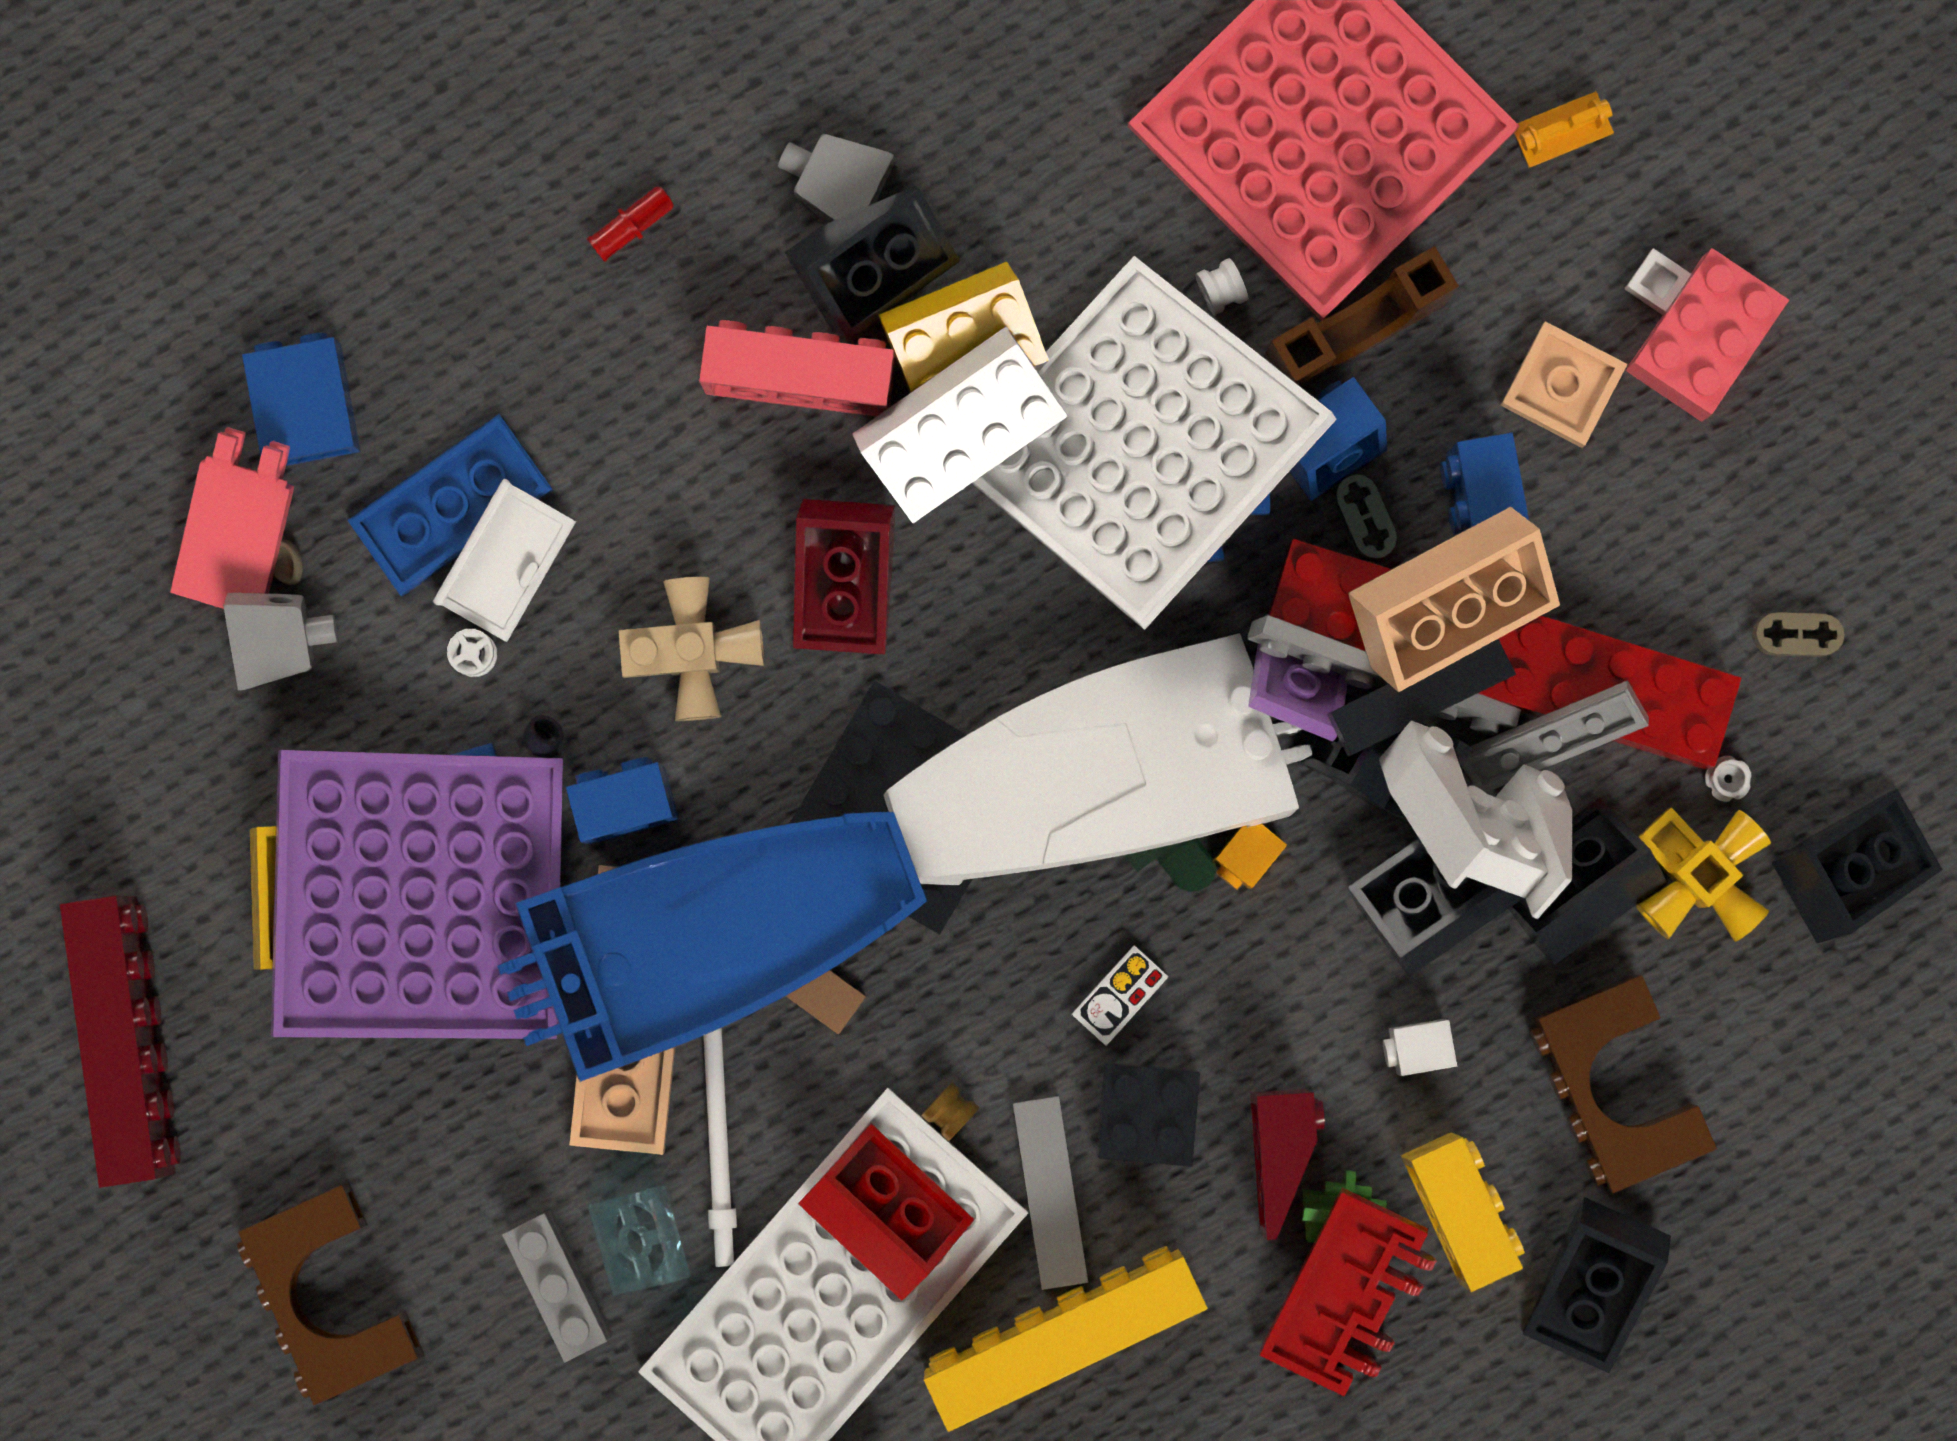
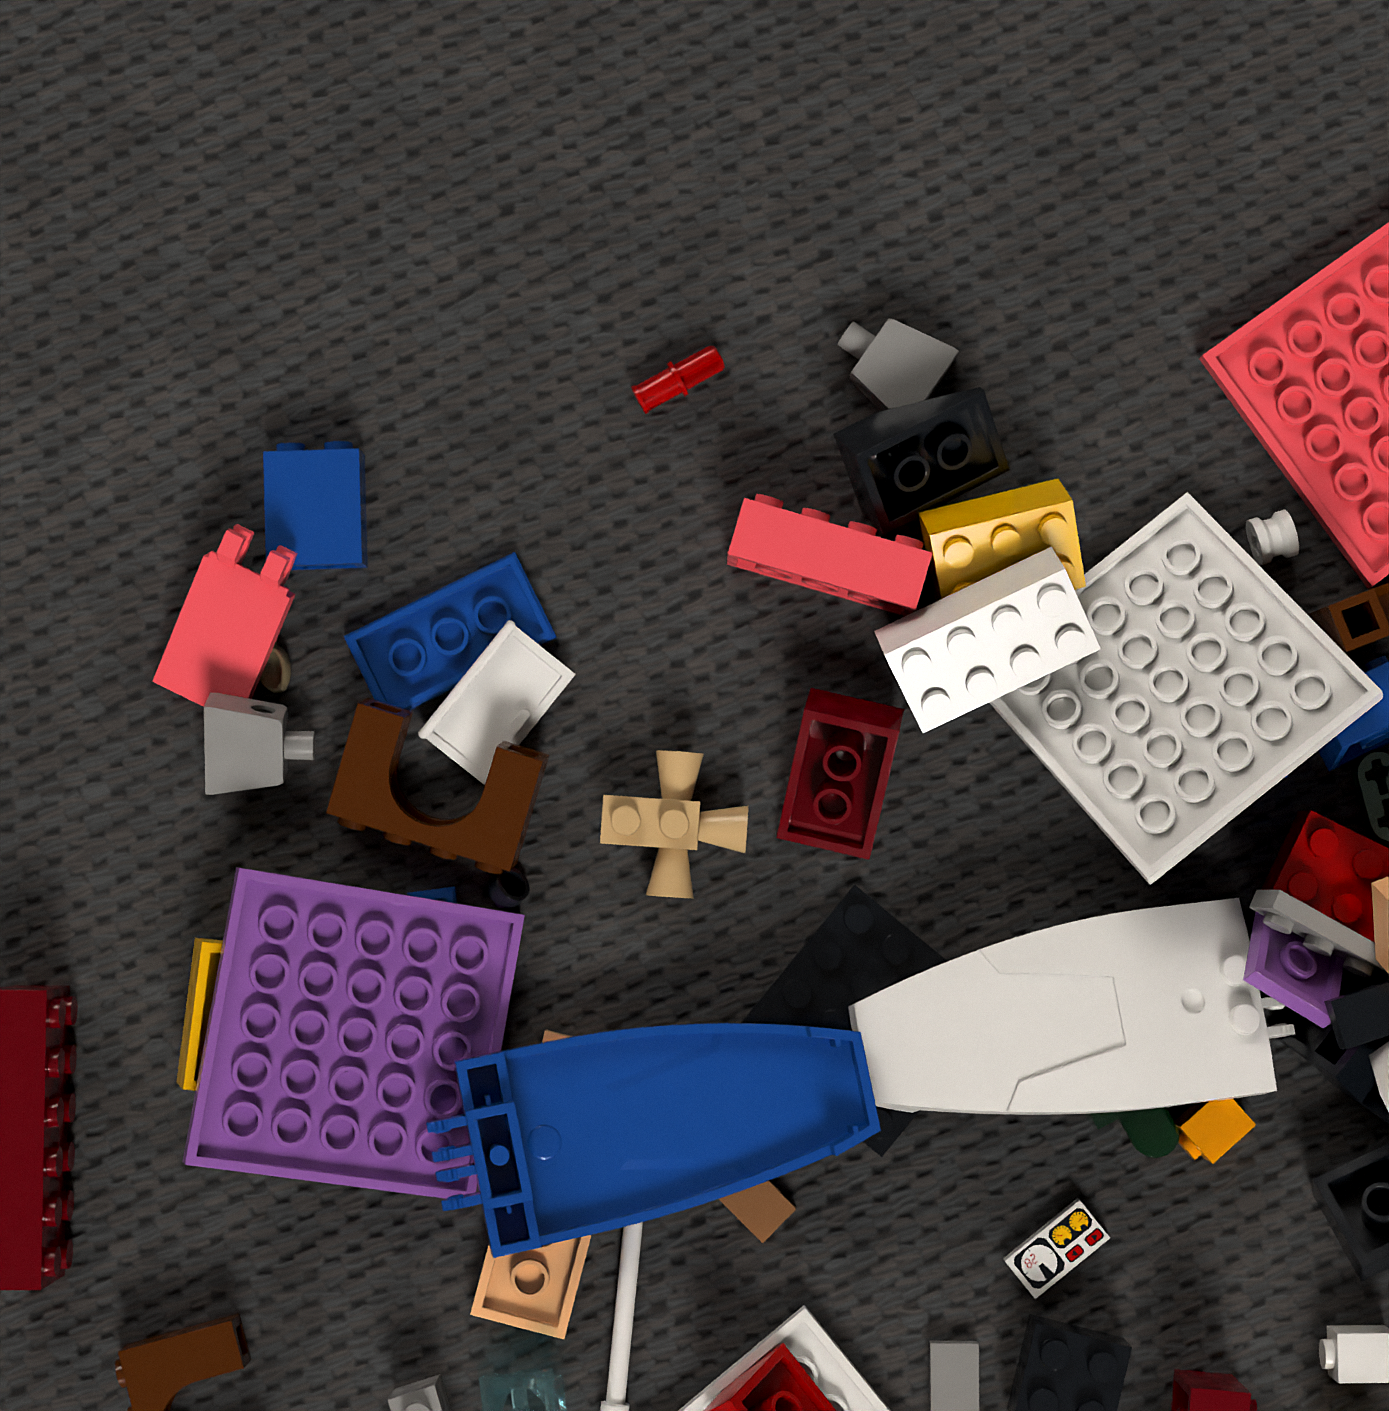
camera: 15 degrees right, 0 degrees up
(396, 665) = (371, 794): none -> reddish brown arch
(467, 646) = (439, 788): white wheel -> none
(621, 802) = (579, 972): blue brick -> none
(950, 1111) = (865, 1342): pearl gold wheel -> none

